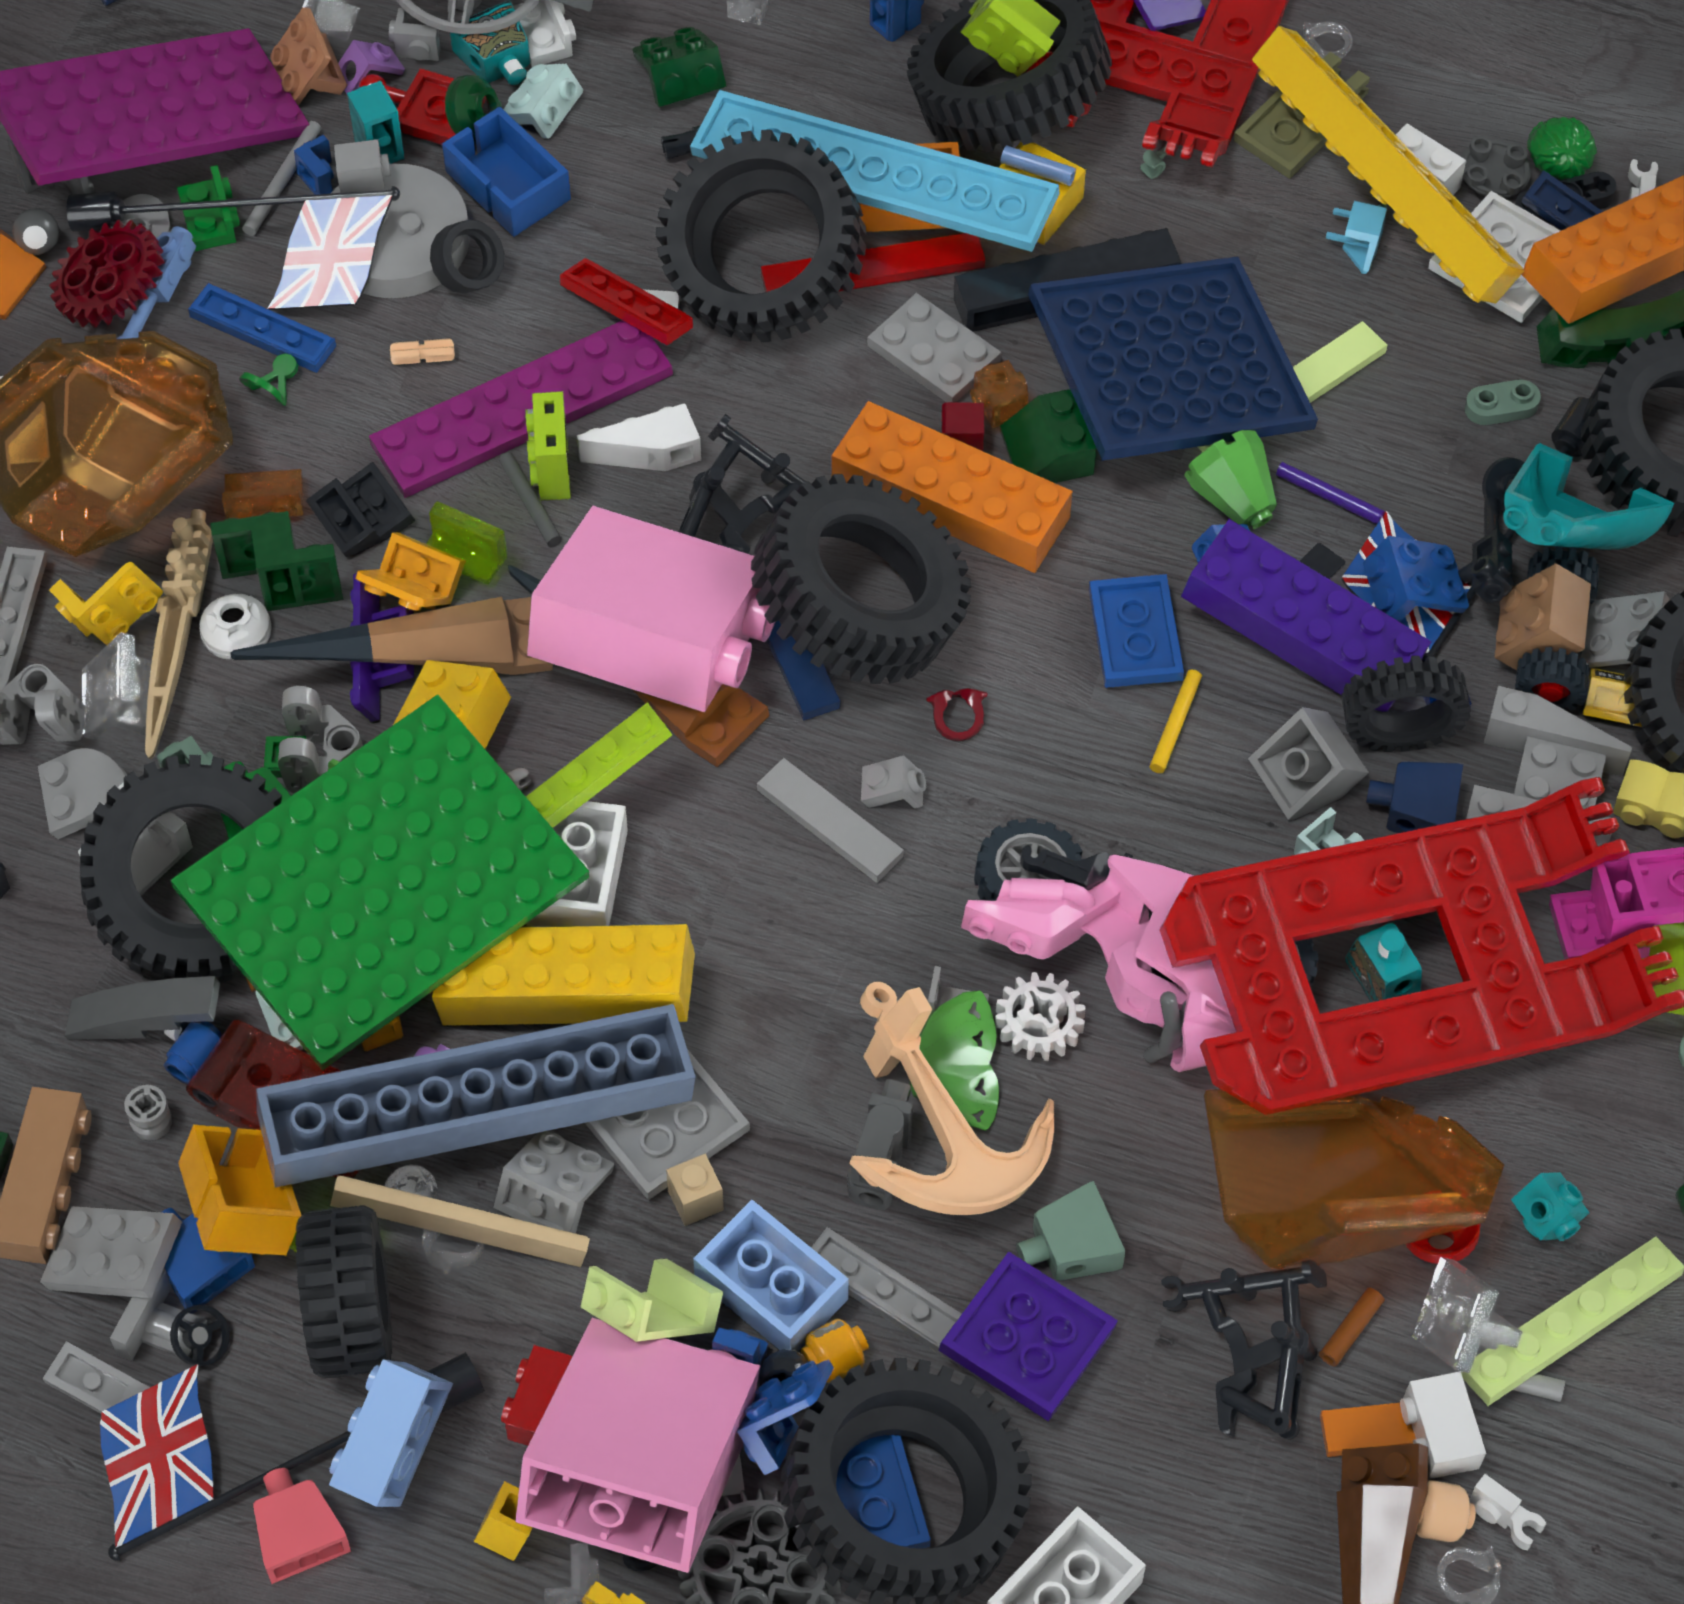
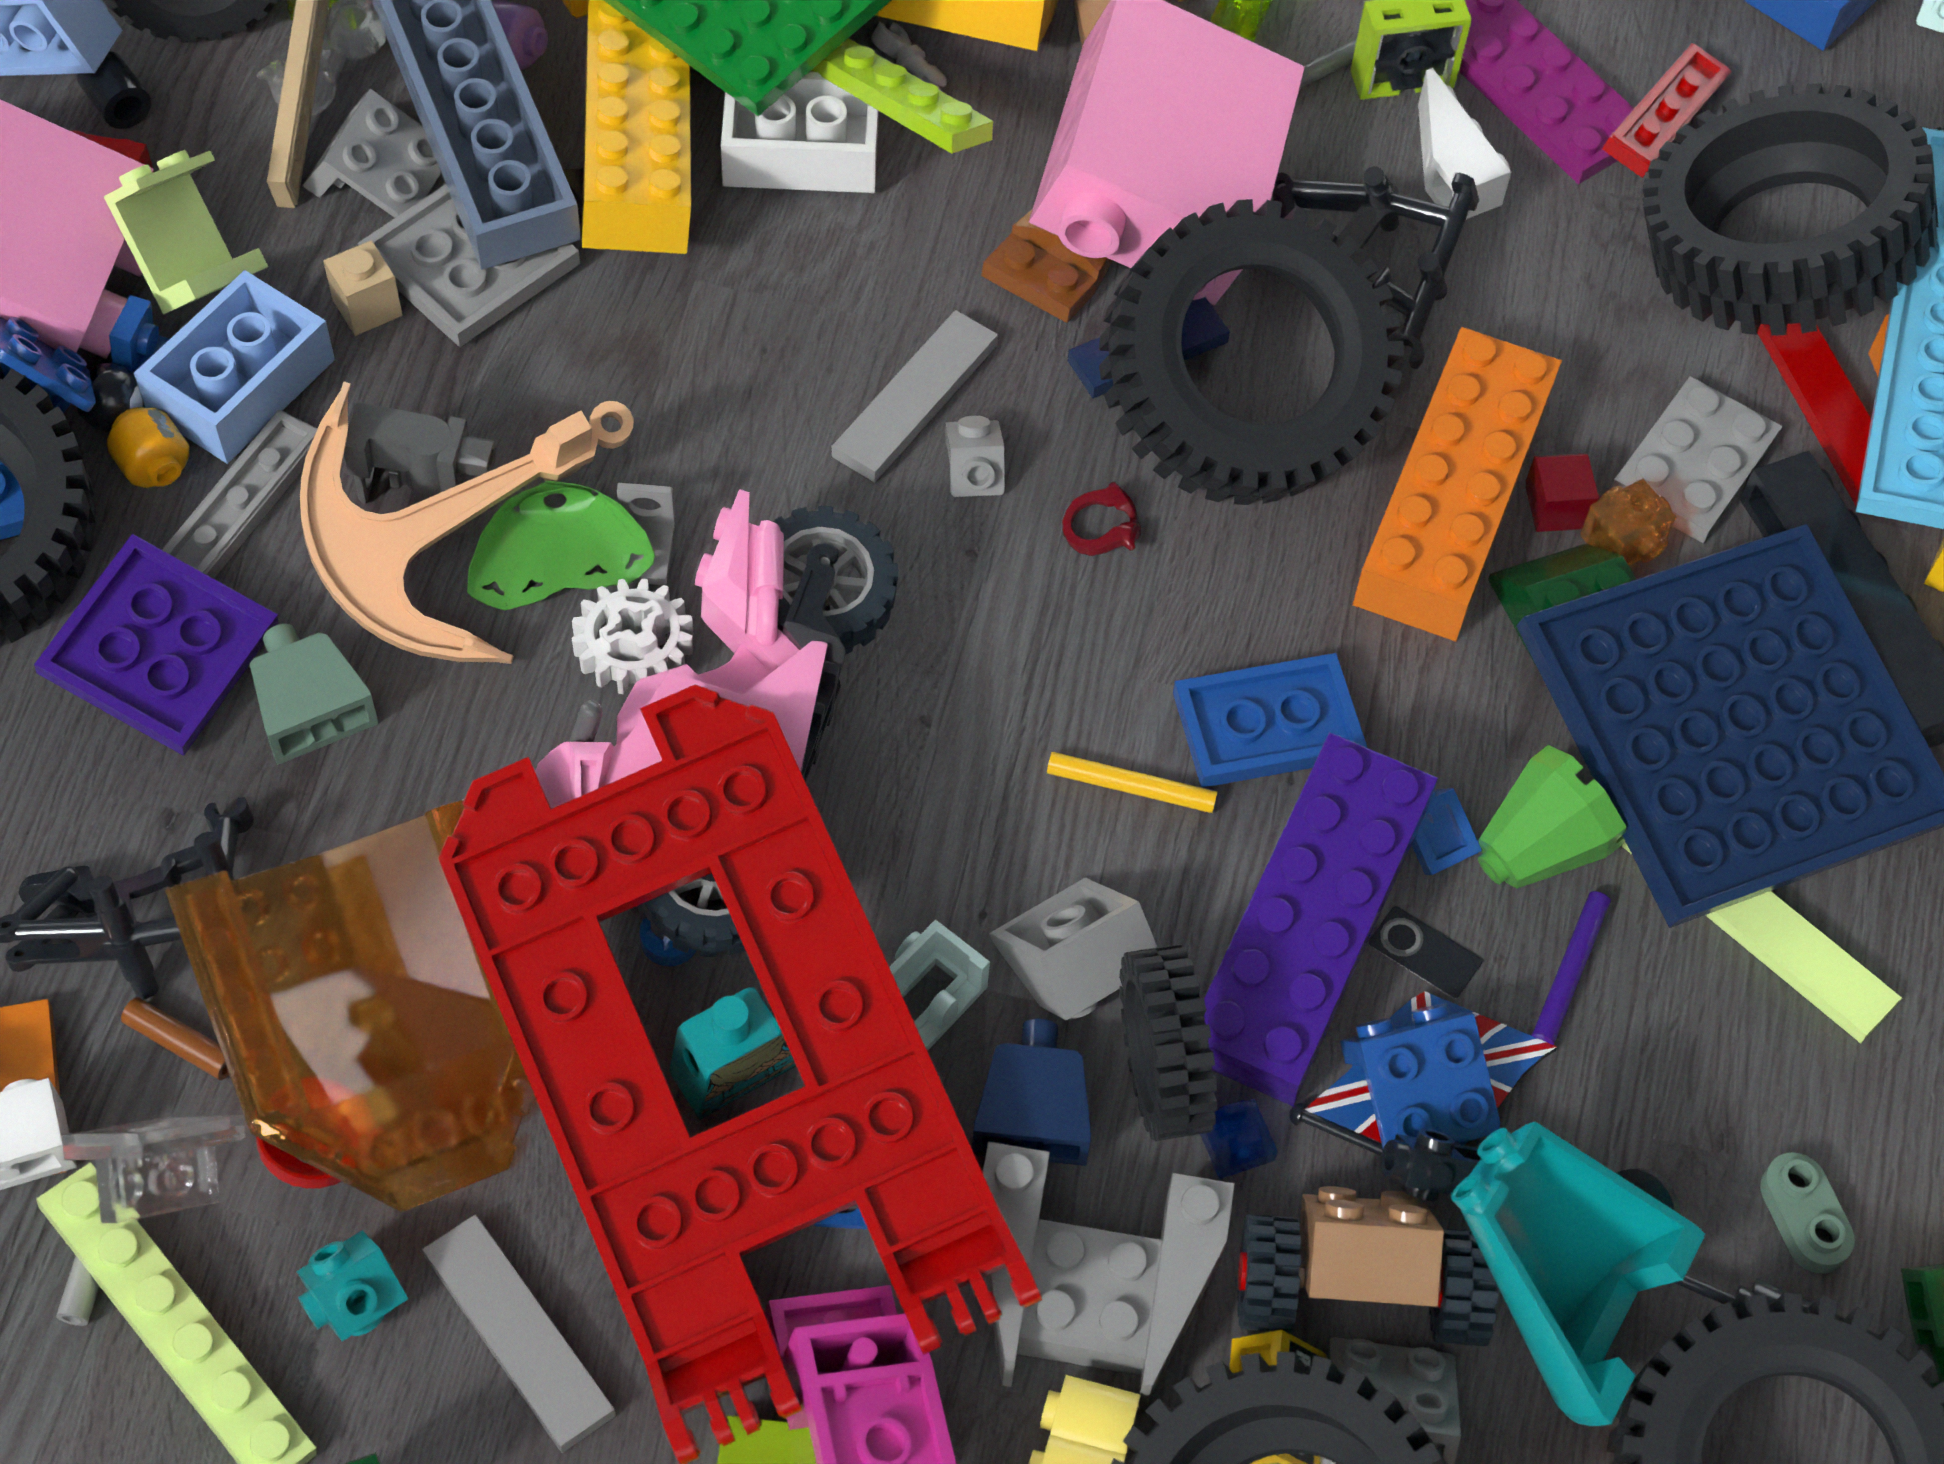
camera: 80 degrees right, 0 degrees up
(1573, 1118) = (519, 1333): none -> light grey tile

